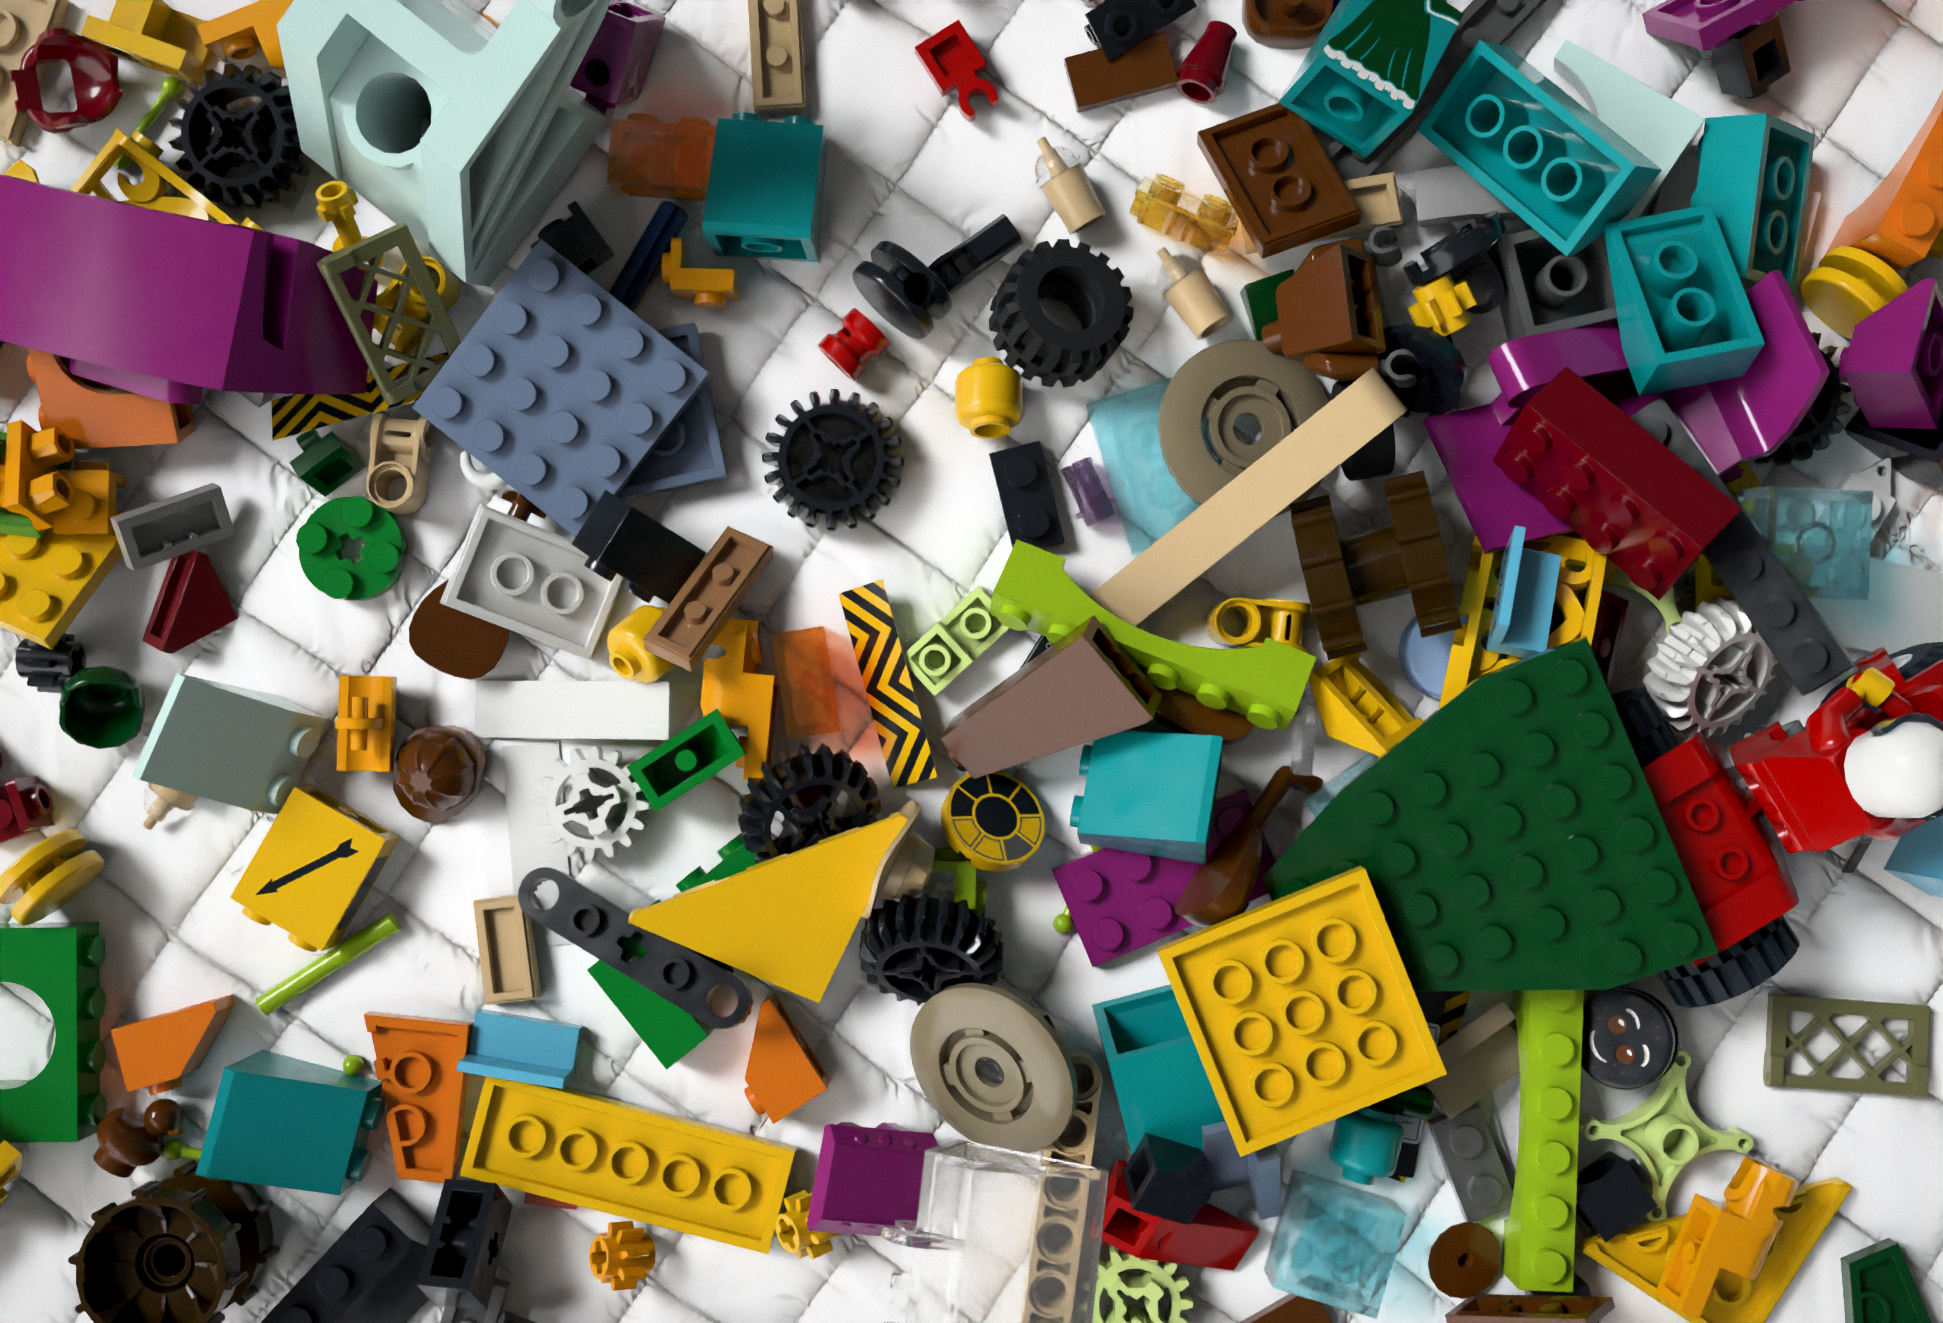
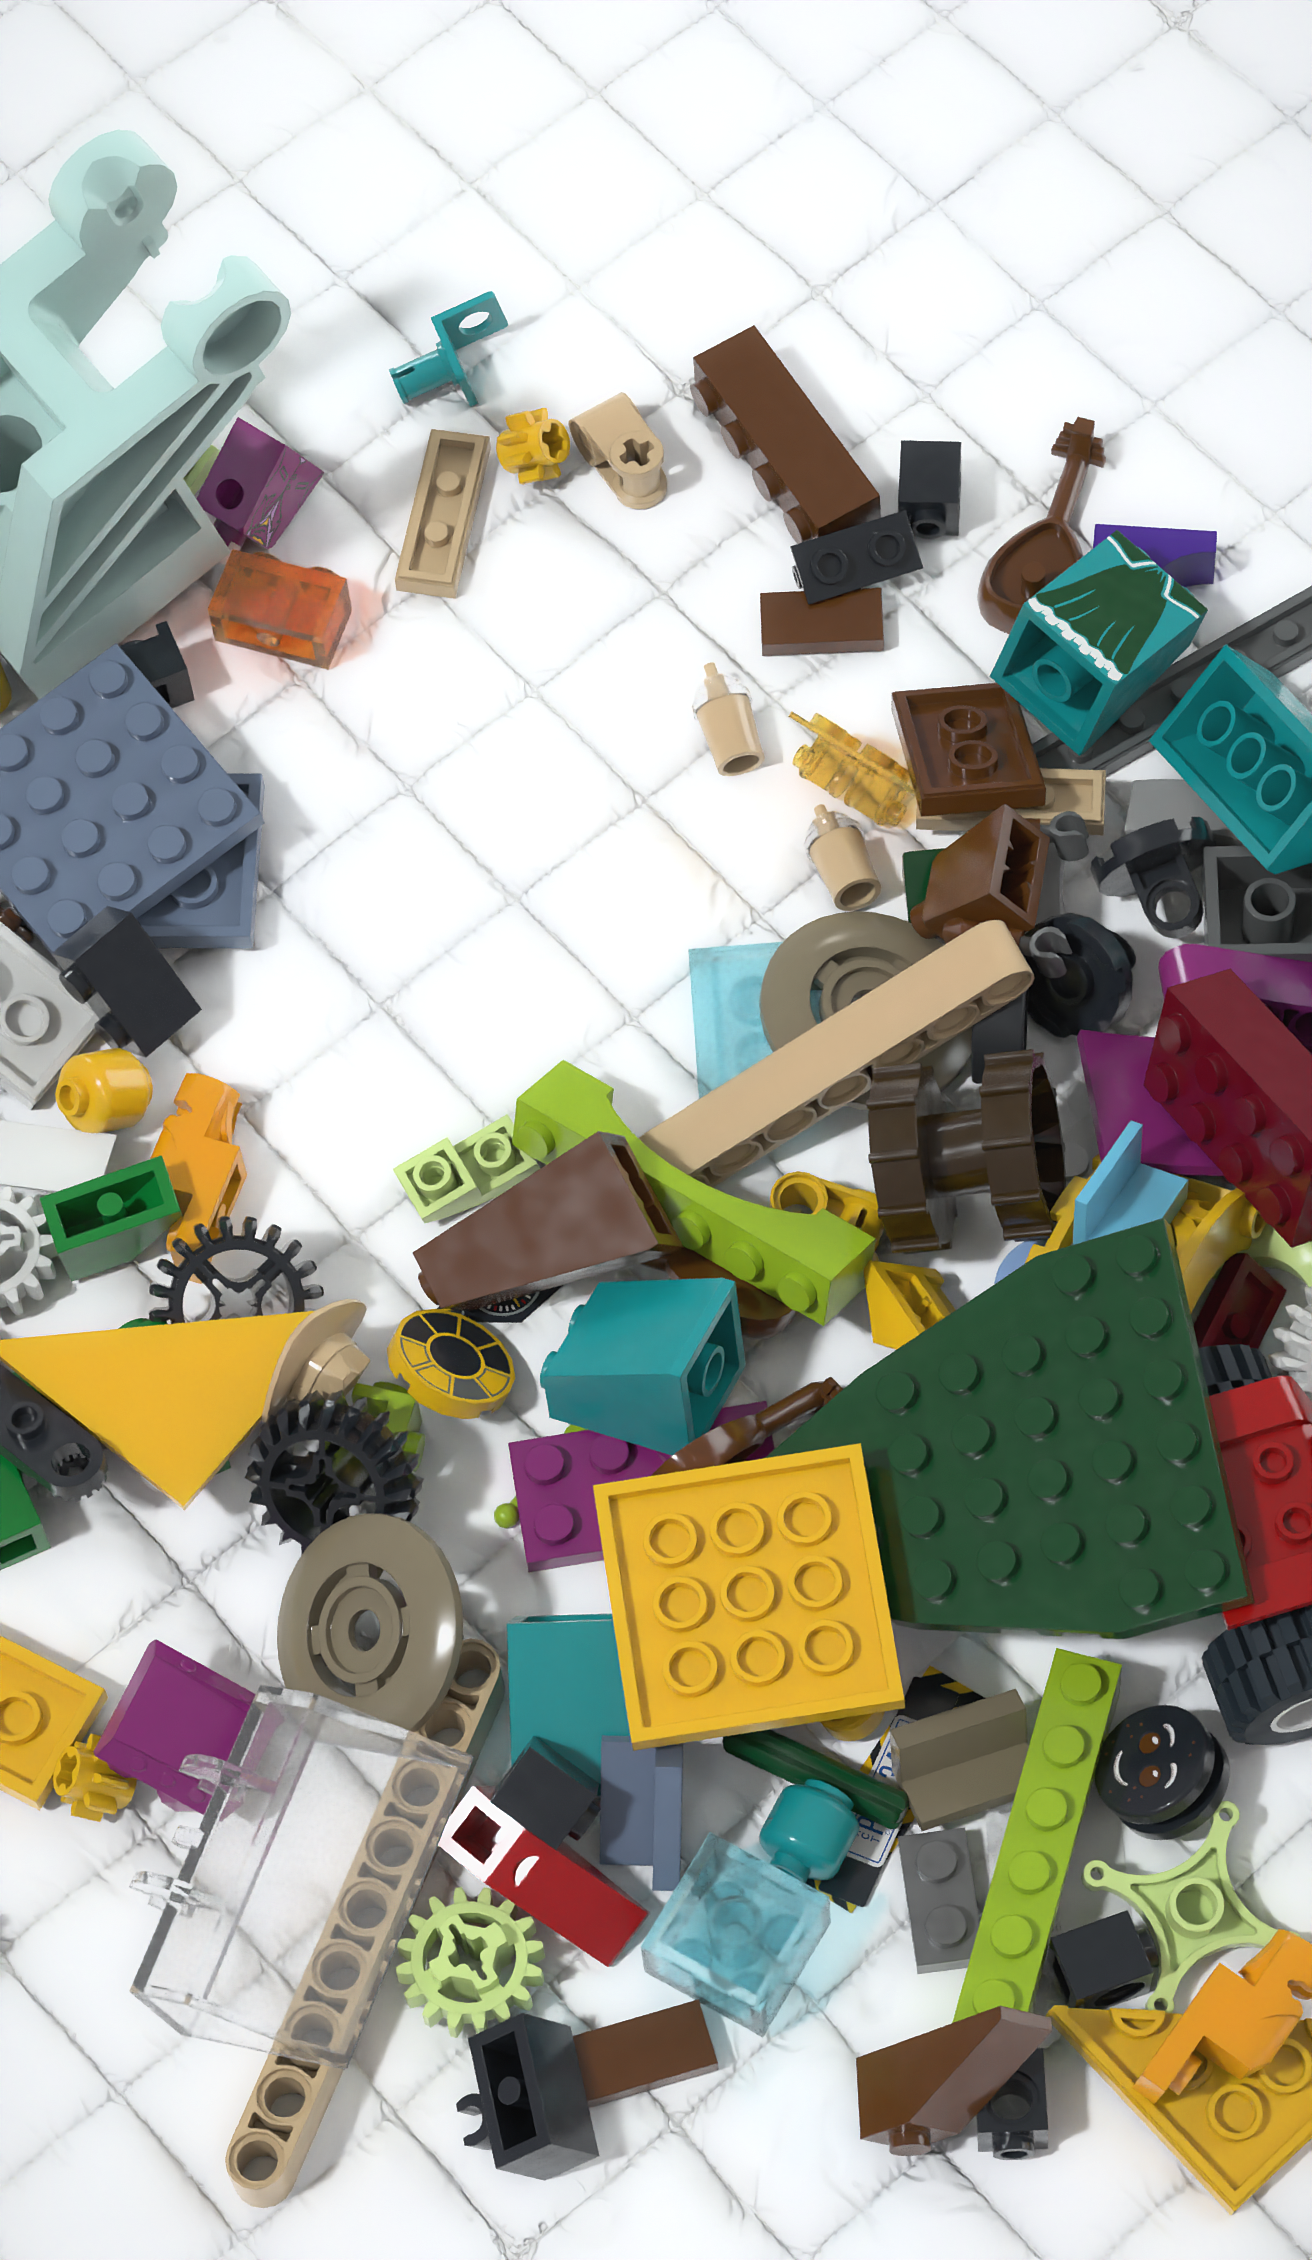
camera: 20 degrees right, 25 degrees down
(647, 254) = (237, 697): dark blue axle -> none
(705, 286) = (281, 738): light orange bracket -> none
(708, 598) = (190, 1050): medium nougat tile -> none
(766, 188) = (382, 658): teal slope -> none
(781, 1064) = (116, 1590): orange slope -> none
(807, 682) = (279, 1167): clear orange brick -> none
(852, 445) = (402, 920): black gear -> none
(853, 344) = (431, 835): red wheel -> none
(887, 684) = (371, 1197): sticker -> none
(902, 289) = (506, 781): black head -> none
(954, 64) = (635, 578): red plate -> none
(982, 251) = (612, 770): black bar -> none
(989, 398) = (575, 917): yellow head -> none
(1027, 496) = (594, 1027): black plate -> none
(1082, 284) = (670, 872): black tyre -> none
(1088, 492) = (666, 1045): clear purple pin -> none
(1206, 67) = (919, 631): dark red cone -> none
(1304, 736) = (843, 1331): clear tile -> none
(1442, 304) = (1123, 905): yellow gear -> none
(1464, 1260) = (899, 2003): reddish brown piece -> none

